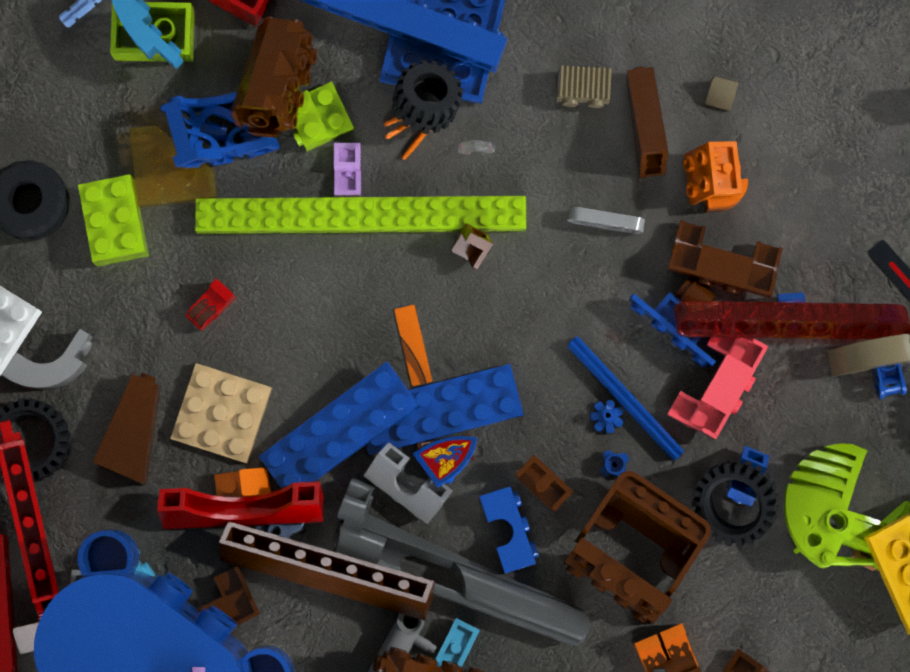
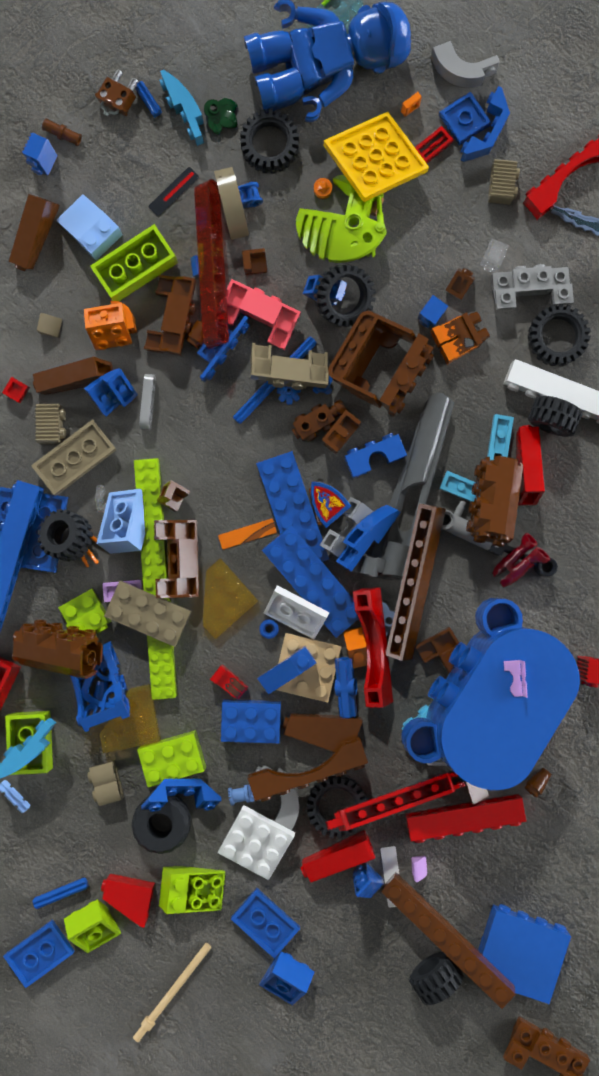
camera: 90 degrees left, 5 degrees up
(56, 318) = (241, 795): none -> medium blue connector
(59, 260) = (204, 795): none -> blue slope
(69, 348) = (270, 782): none -> reddish brown arch
(88, 130) = (106, 783): none -> dark tan brick
(154, 331) = (250, 721): none -> blue brick
(189, 464) = (346, 687): none -> blue piece
(220, 385) = (287, 670): none -> blue slope
(272, 359) = (264, 633): none -> blue plate
(297, 402) = (296, 612): none -> white plate
(312, 200) = (147, 613): none -> dark tan plate
(325, 307) = (224, 598): none -> clear yellow plate
(384, 252) = (182, 558): none -> bracket
(404, 512) = (364, 533): none -> blue slope
(440, 175) = (123, 522): none -> light blue slope
(534, 115) = (73, 458): none -> dark tan plate
(561, 447) = (315, 424): none -> reddish brown brick
(622, 171) = (111, 391): none -> blue slope
(632, 417) = (289, 371): none -> dark tan bracket
(634, 43) = (15, 390): none -> red plate
(706, 626) = (432, 312): none -> blue brick
(794, 381) = (254, 261): none -> reddish brown panel
(798, 214) = (134, 264): none -> lime brick
(852, 79) = (32, 231): none -> reddish brown slope
(856, 156) = (90, 227): none -> light blue slope
(895, 485) = (322, 188): none -> orange tile

